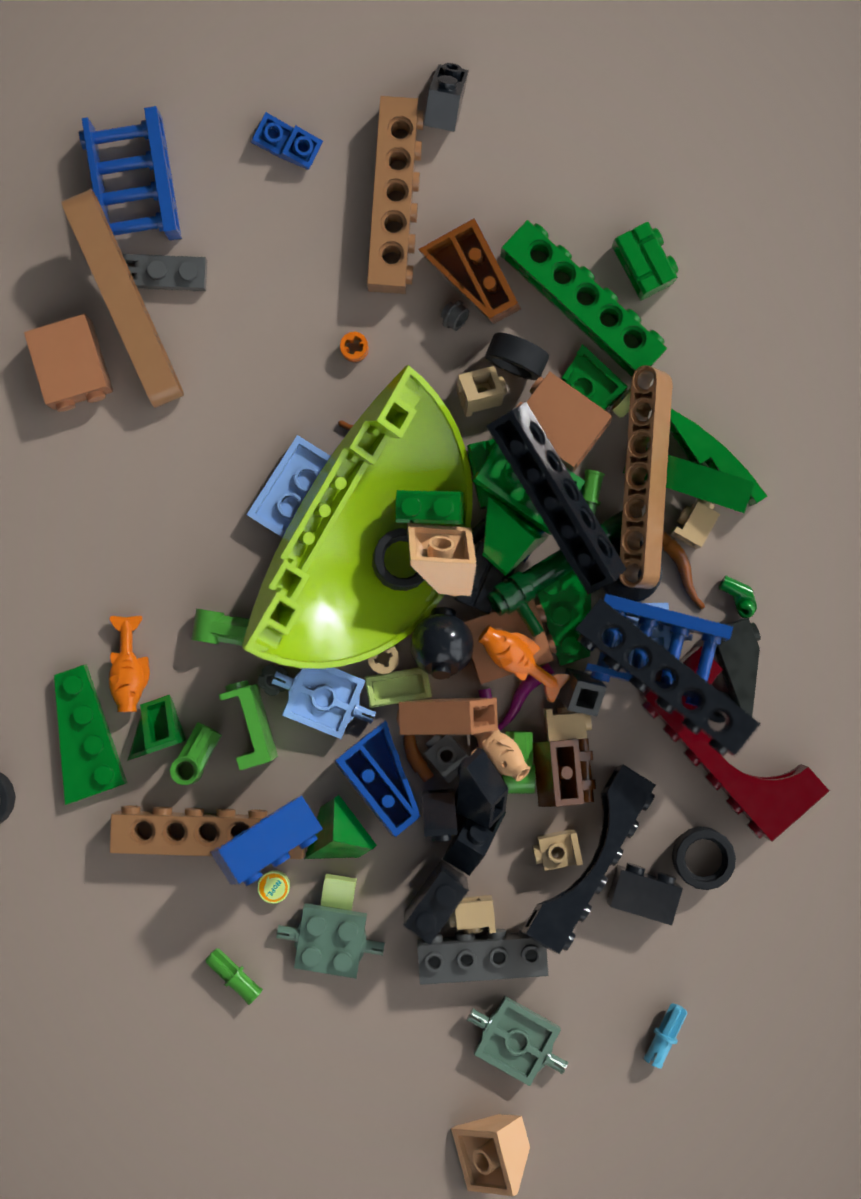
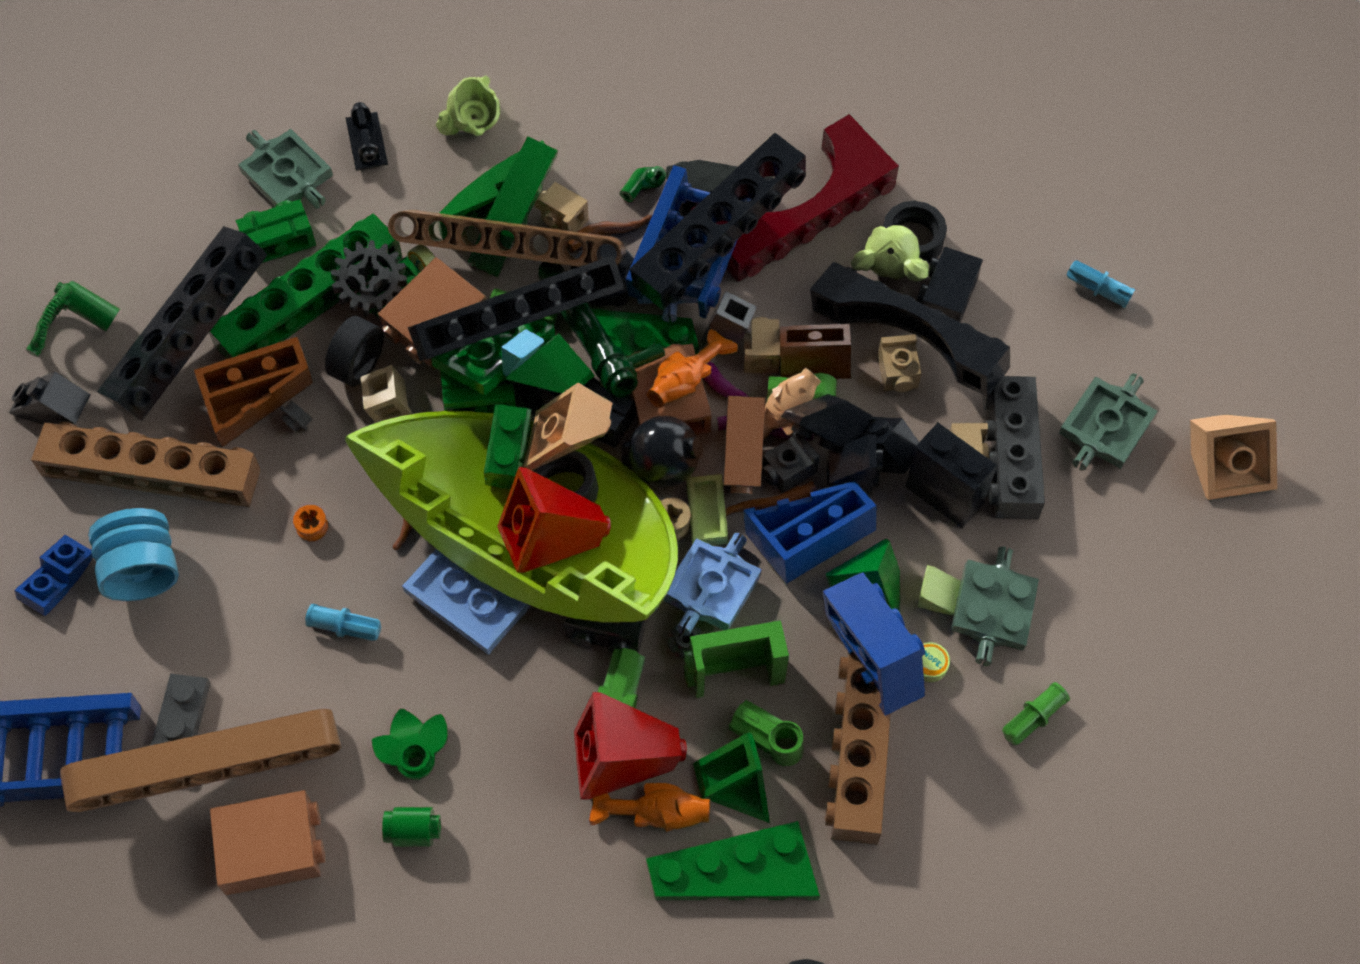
camera: 90 degrees left, 25 degrees down
(91, 475) = (411, 826): none -> green brick
(166, 637) = (622, 746): none -> red slope
(169, 463) = (411, 739): none -> green plate
(263, 390) = (343, 622): none -> medium azure axle
(299, 203) = (133, 554): none -> medium azure wheel
(350, 553) = (548, 522): none -> red slope
(509, 508) = (519, 350): none -> medium azure slope
(528, 197) = (182, 323): none -> black brick
(547, 96) = (77, 300): none -> green piece
(590, 342) = (355, 276): none -> dark grey gear
(668, 852) = (901, 263): none -> yellowish green hair
(717, 256) = (285, 168): none -> sand green plate
(762, 326) = (366, 138): none -> black hinge
(814, 417) = (466, 101): none -> yellowish green hair

